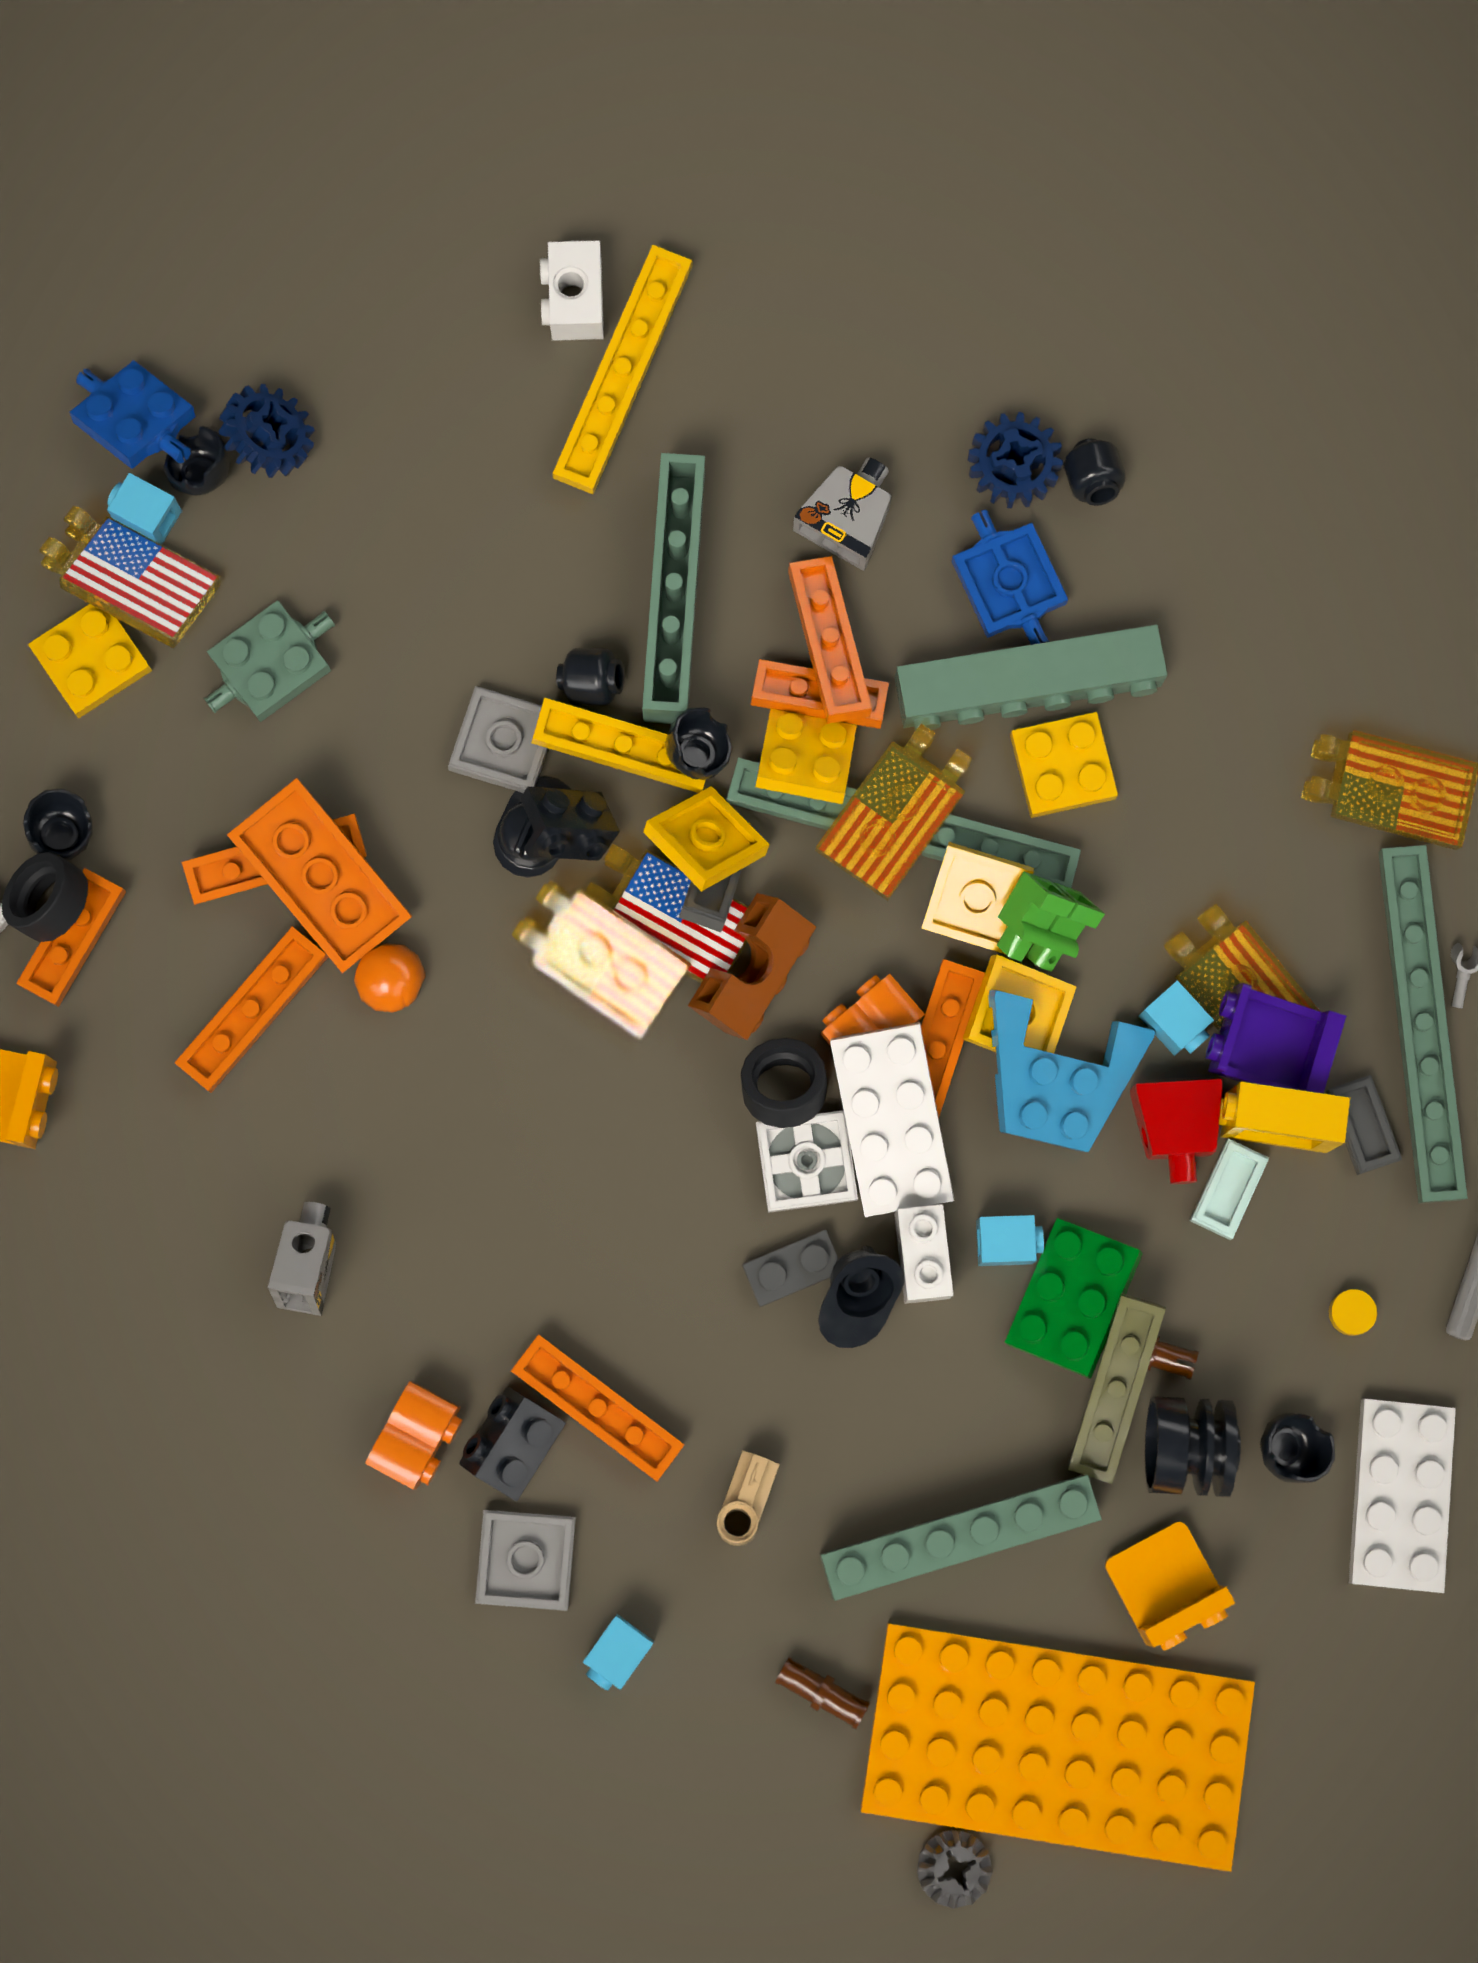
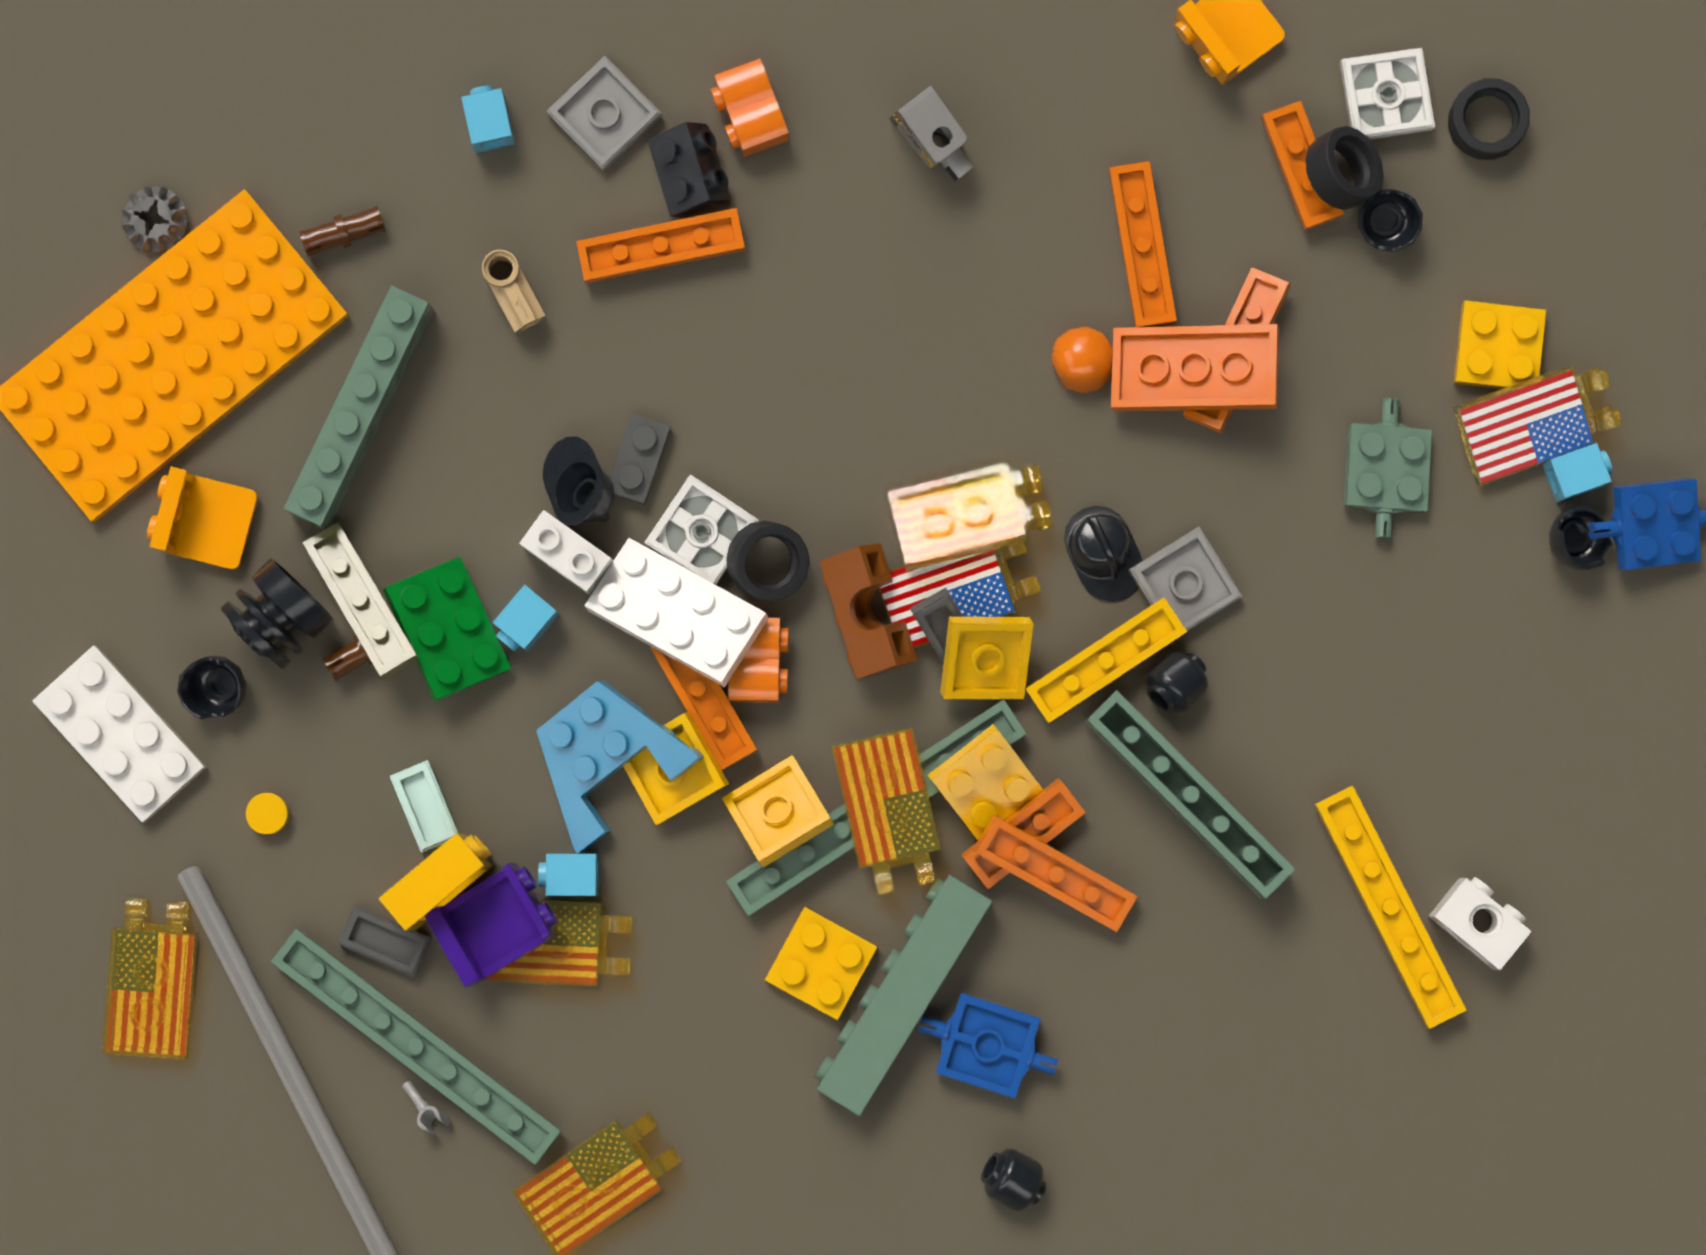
camera: 135 degrees right, 5 degrees up
(266, 430) = (1558, 591): dark blue gear -> none
(568, 823) = (1082, 571): black bracket -> none
(698, 744) = (1056, 708): black hair -> none
(847, 512) = (1139, 973): light grey torso -> none
(1014, 442) = (1089, 1137): dark blue gear -> none
(1046, 917) = (718, 841): bright green hips -> none
(1178, 1123) = (498, 810): red torso -> none

